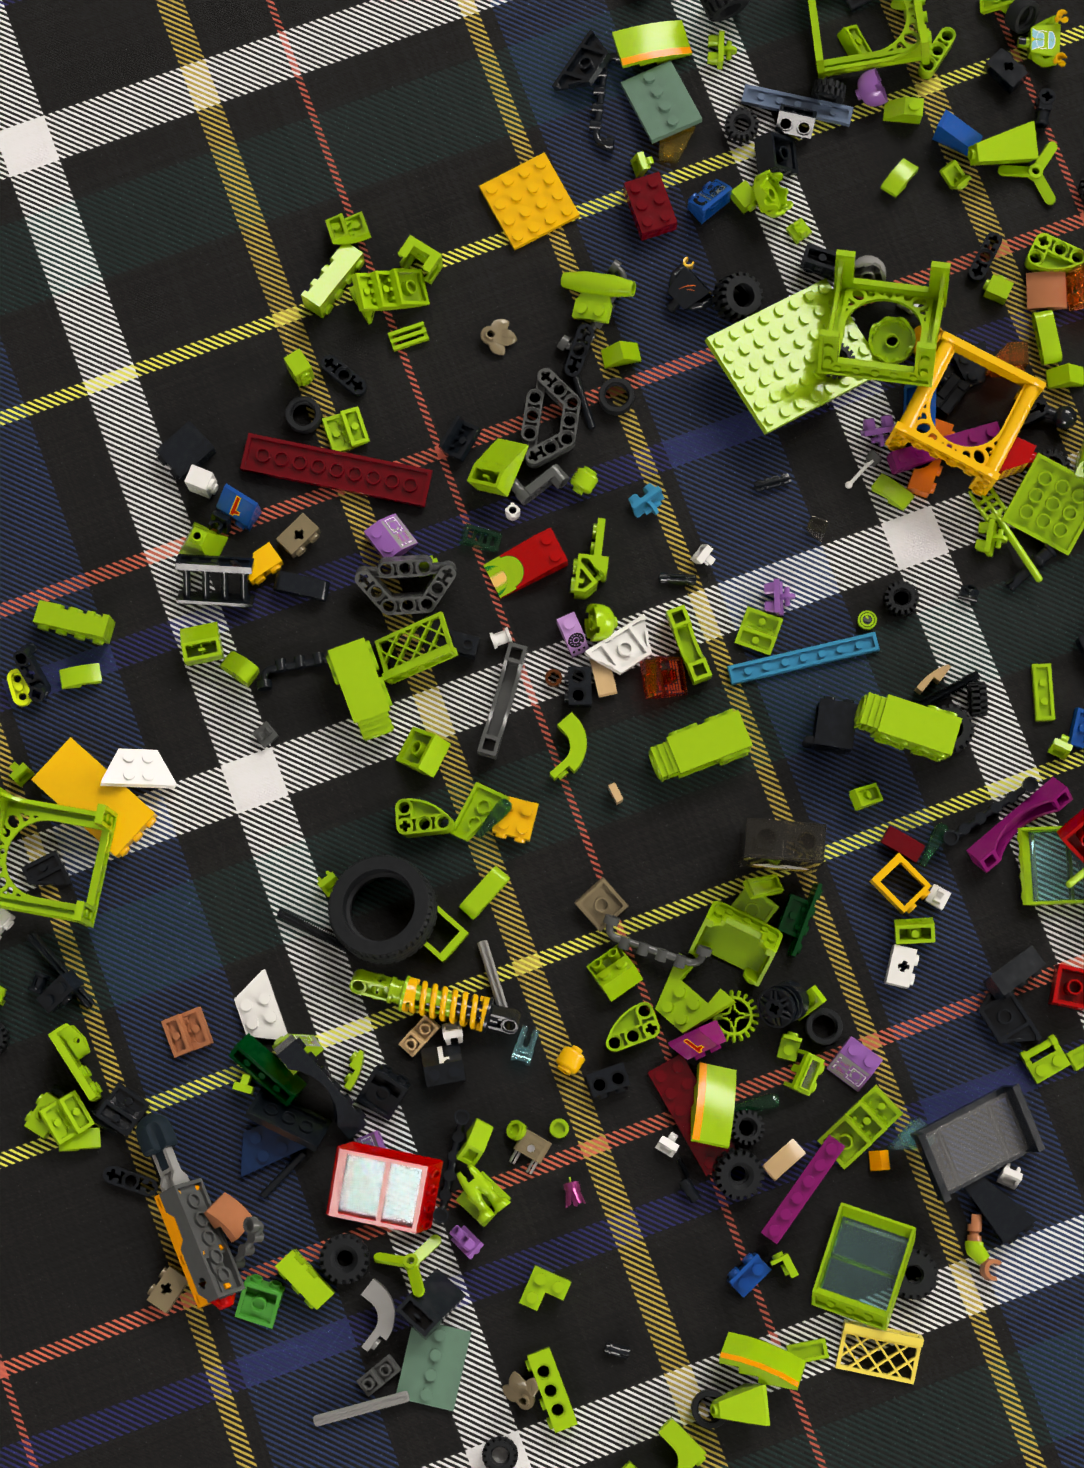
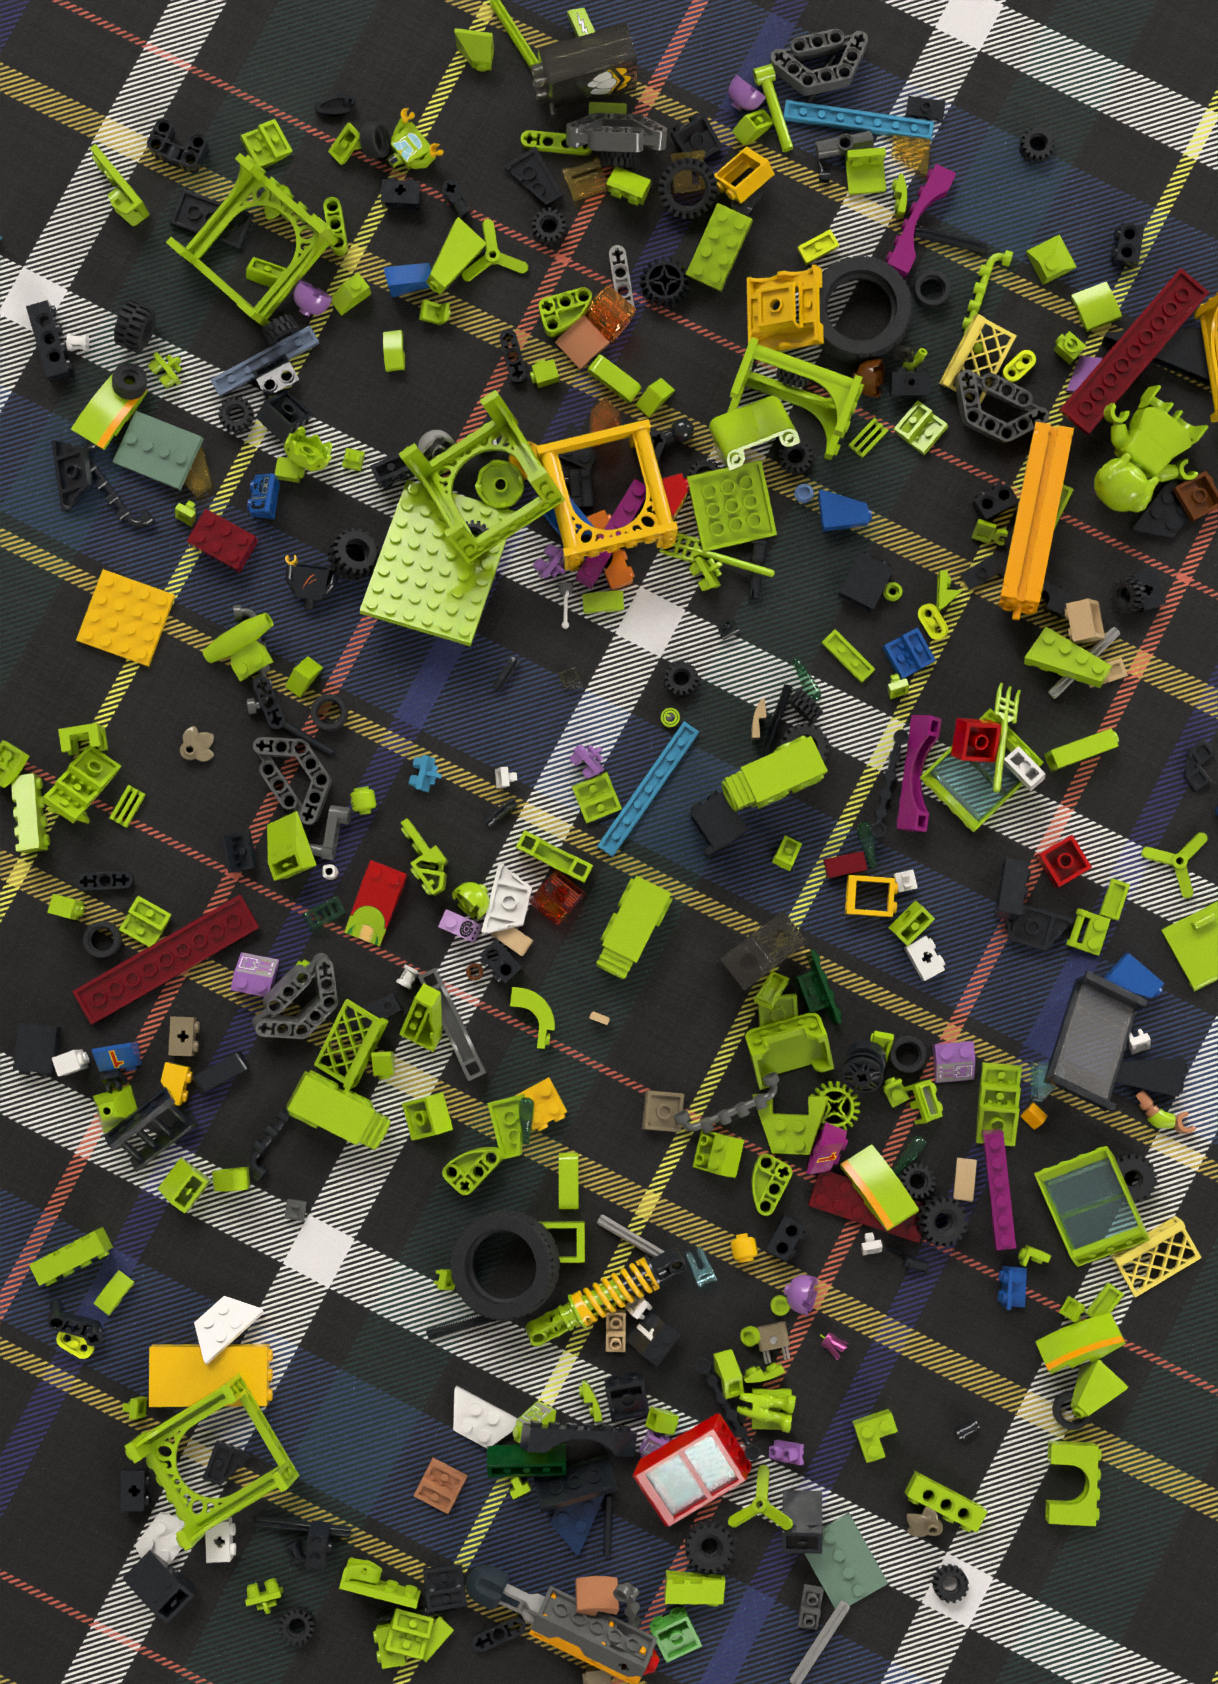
camera: 45 degrees left, 5 degrees up
(384, 1305) = (766, 1552): light grey arch -> none
(394, 1132) = (662, 1421): none -> lime brick
(426, 684) = (383, 1064): none -> lime slope
(486, 676) = (424, 1019): none -> lime wedge
(495, 1163) = (756, 1374): none -> lime slope
(583, 1132) = (801, 1293): none -> medium lavender cylinder
(691, 28) = (129, 371): none -> black tyre
(779, 1332) = (1072, 1309): none -> lime tile
(994, 683) = (807, 682): none -> clear green piece
(1051, 1125) = (1134, 977): none -> blue slope

